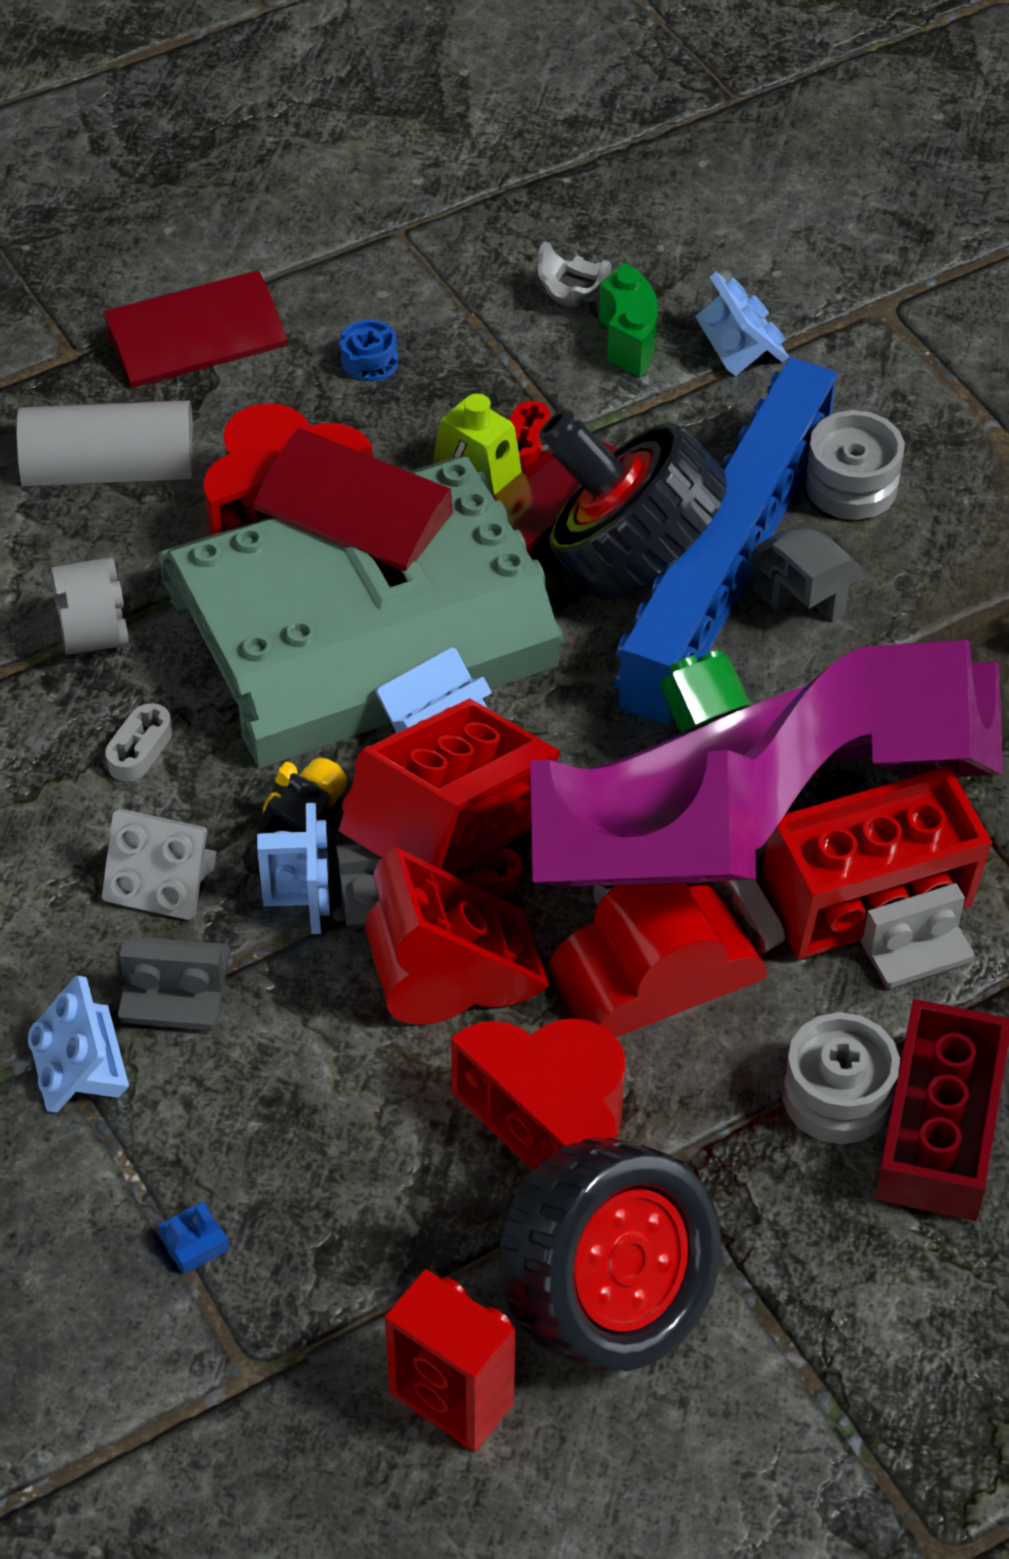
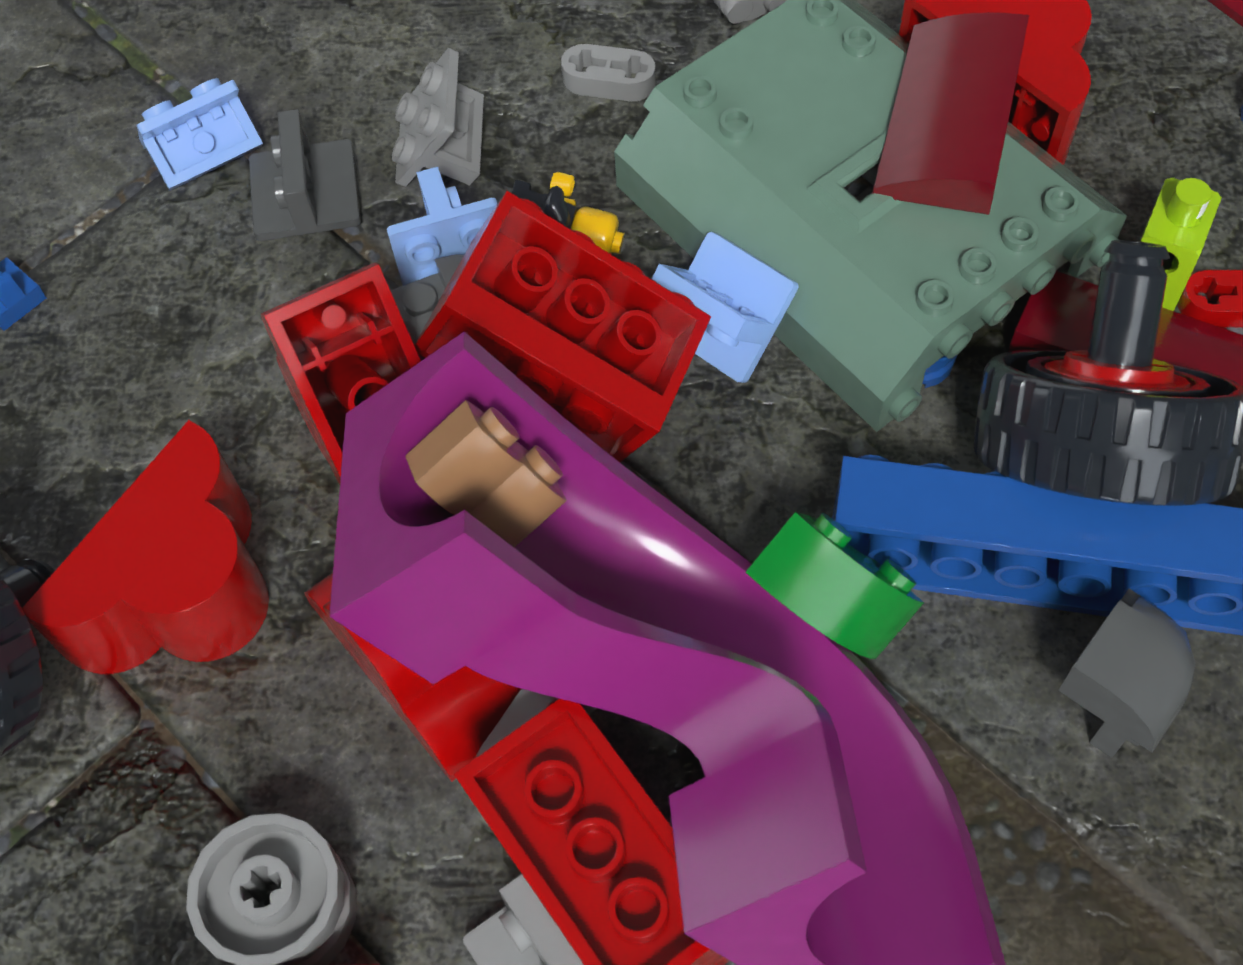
camera: 80 degrees right, 10 degrees up
(624, 796) = (481, 469): none -> medium nougat brick

